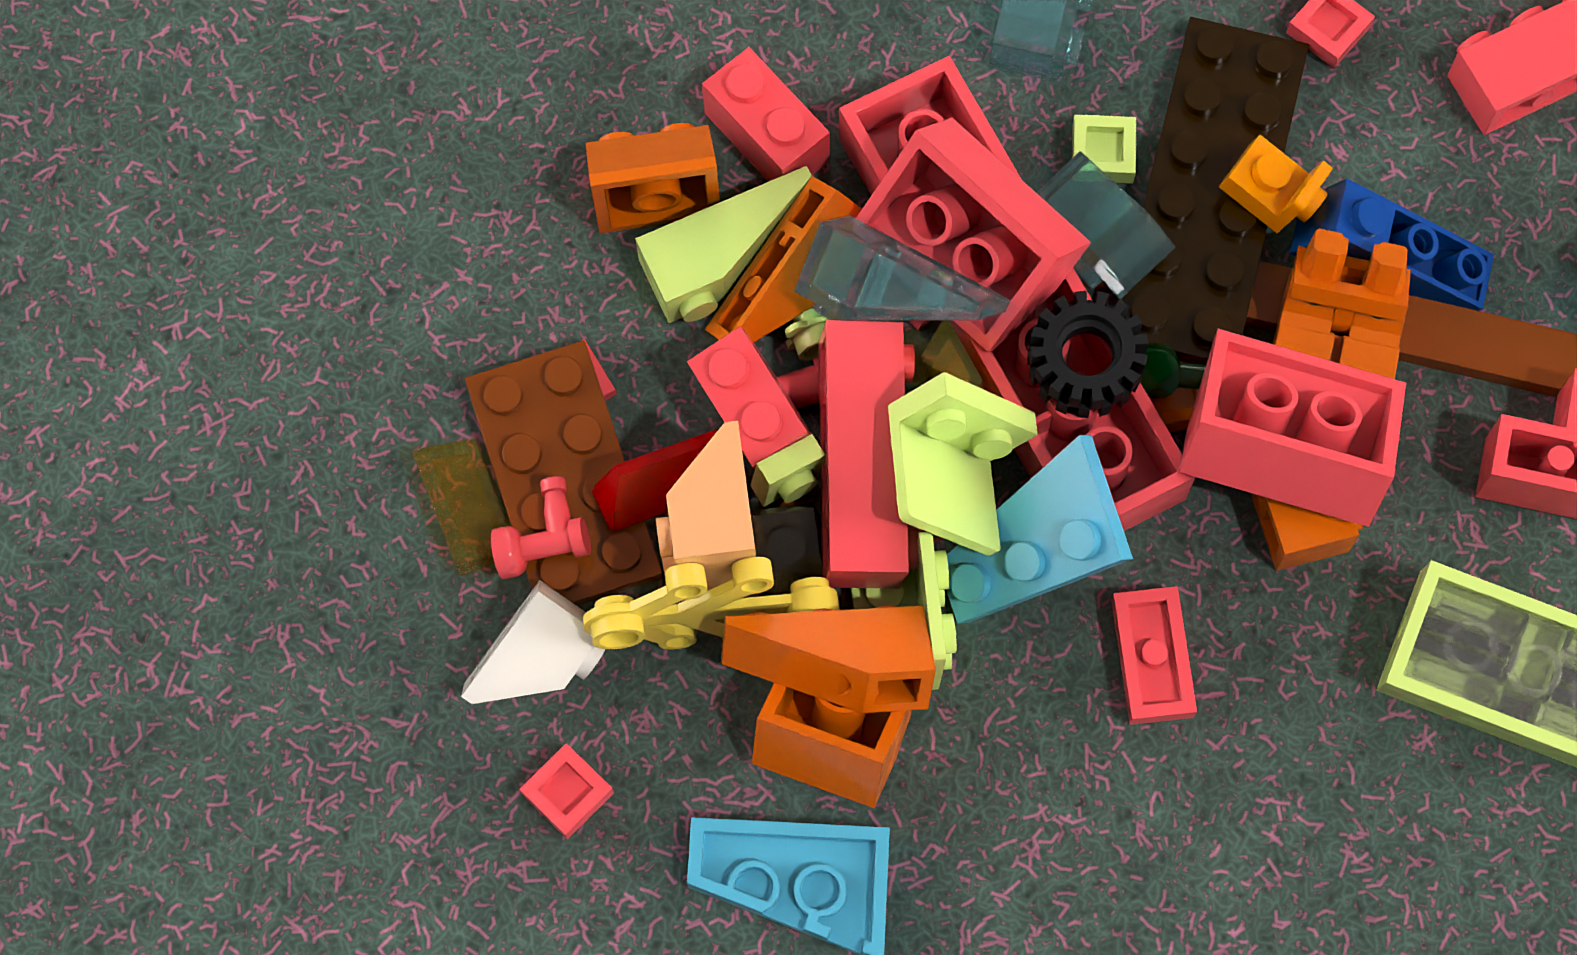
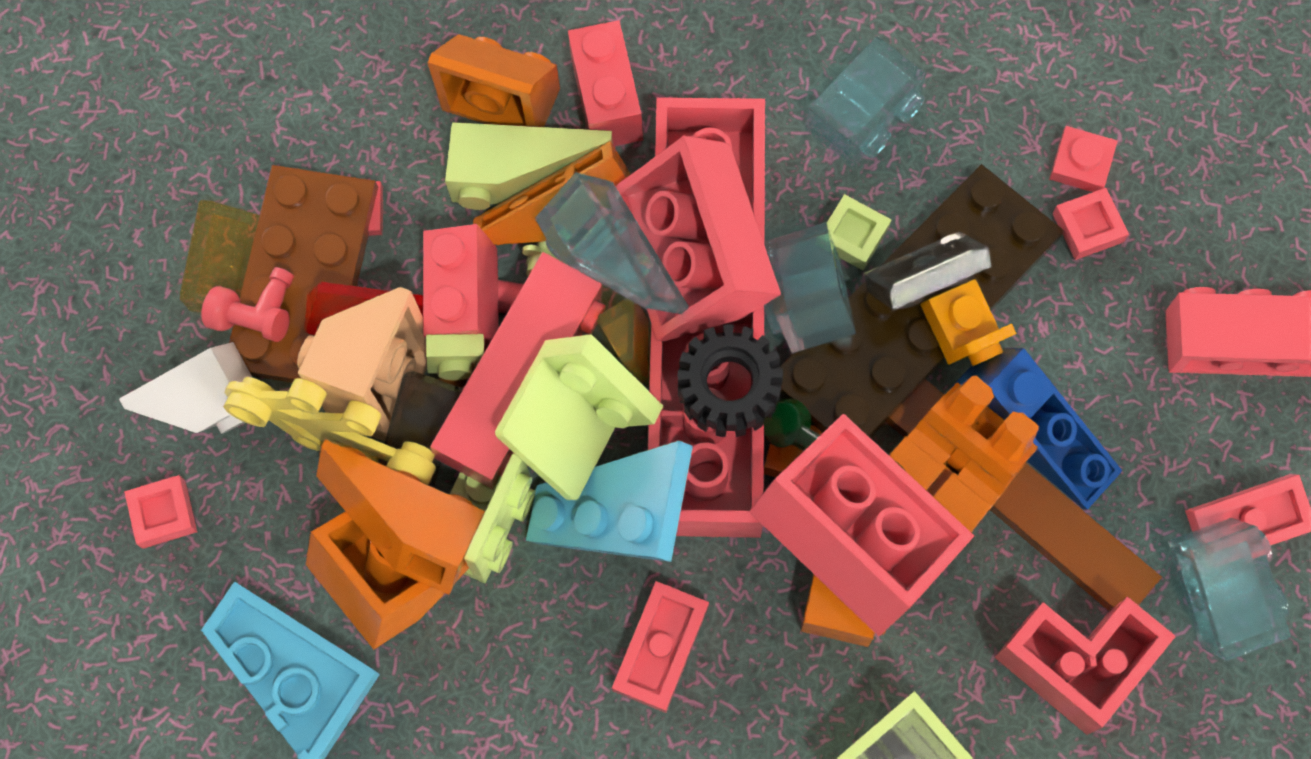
camera: 30 degrees right, 0 degrees up
(1209, 149) = (927, 270): none -> clear smoke plate

